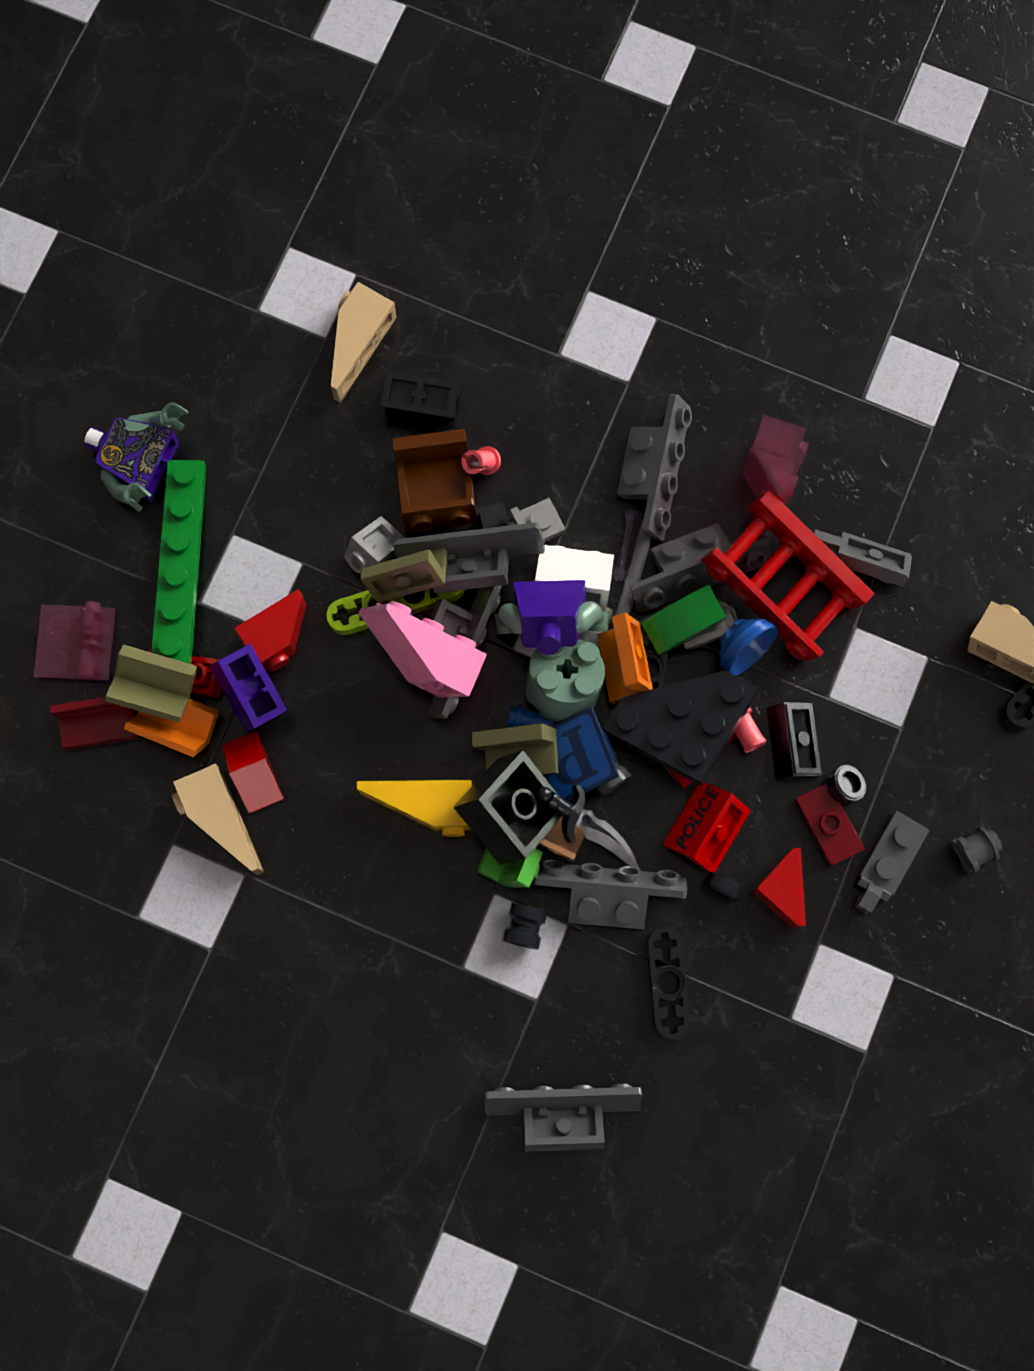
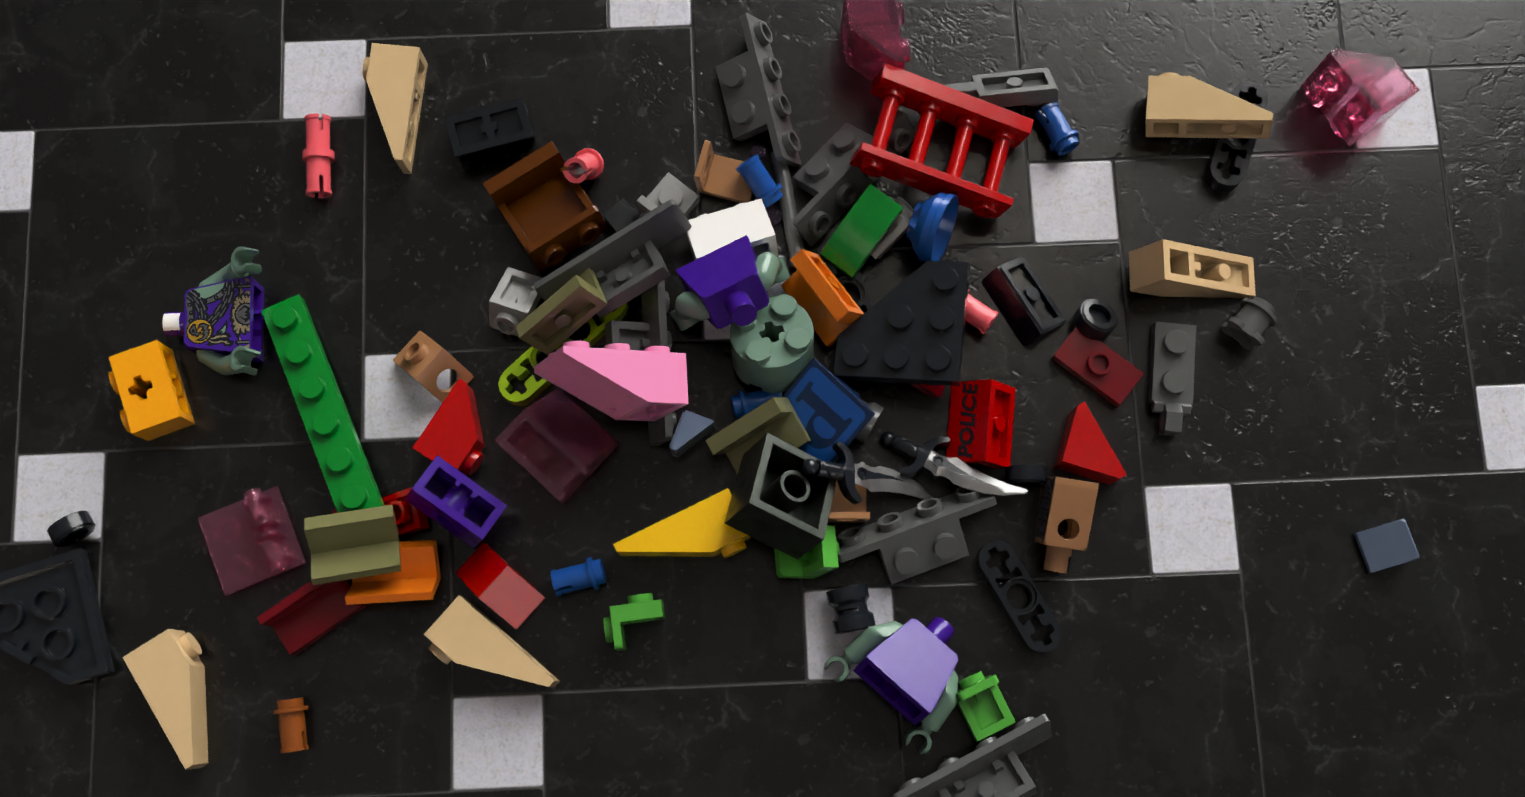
camera: 25 degrees left, 0 degrees up
(38, 804) = (292, 724): none -> dark orange pin
(59, 502) = (166, 403): none -> light orange brick
(272, 354) = (318, 156): none -> coral pin
(278, 562) = (426, 360): none -> medium nougat bracket
(318, 795) = (578, 577): none -> blue pin
(351, 679) = (557, 443): none -> clear pink slope
(352, 844) = (639, 609): none -> bright green bracket
(463, 719) = (689, 432): none -> sand blue slope
(547, 998) = (909, 670): none -> torso
(594, 522) = (719, 177): none -> medium nougat bracket
(594, 1057) = (983, 705): none -> bright green bracket
(620, 540) = (760, 181): none -> blue pin
(664, 851) = (949, 467): none -> piece
(741, 921) = (1070, 501): none -> medium nougat torso
(893, 610) = (1057, 129): none -> blue pin
(947, 783) = (1190, 271): none -> tan slope
(1000, 1090) = (1386, 545): none -> sand blue slope

